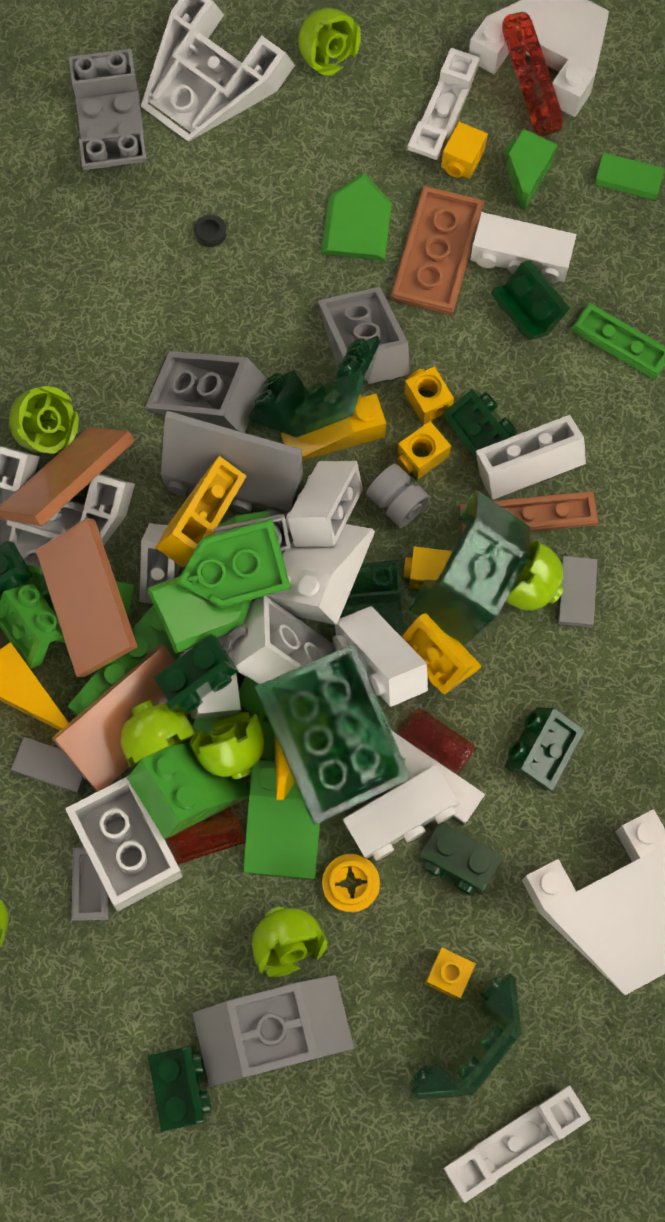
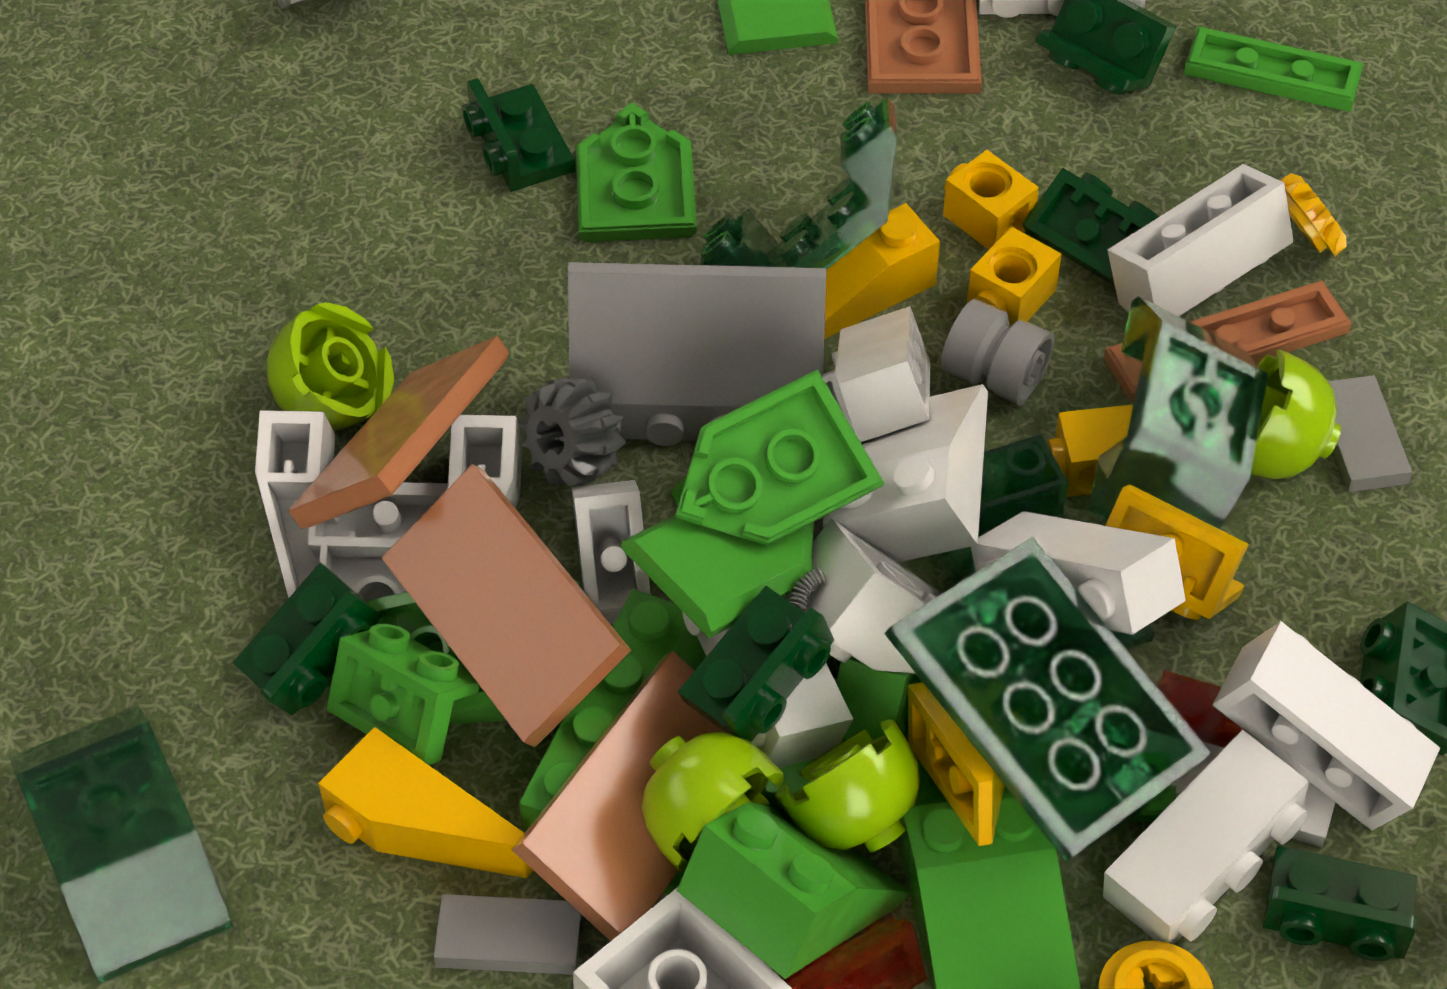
camera: 15 degrees left, 20 degrees down
(154, 494) = (571, 431): none -> dark grey gear
(189, 284) = (517, 135): none -> dark green bracket
(201, 511) = (668, 421): yellow slope -> none
(207, 388) = (633, 233): light grey slope -> none
(210, 230) = (530, 57): pearl dark grey tile -> none
(244, 325) = (635, 181): none -> bright green tile
(366, 316) = (807, 139): light grey slope -> none
(483, 769) = (1327, 726): none -> white brick
(599, 451) = (1312, 216): none -> yellow gear

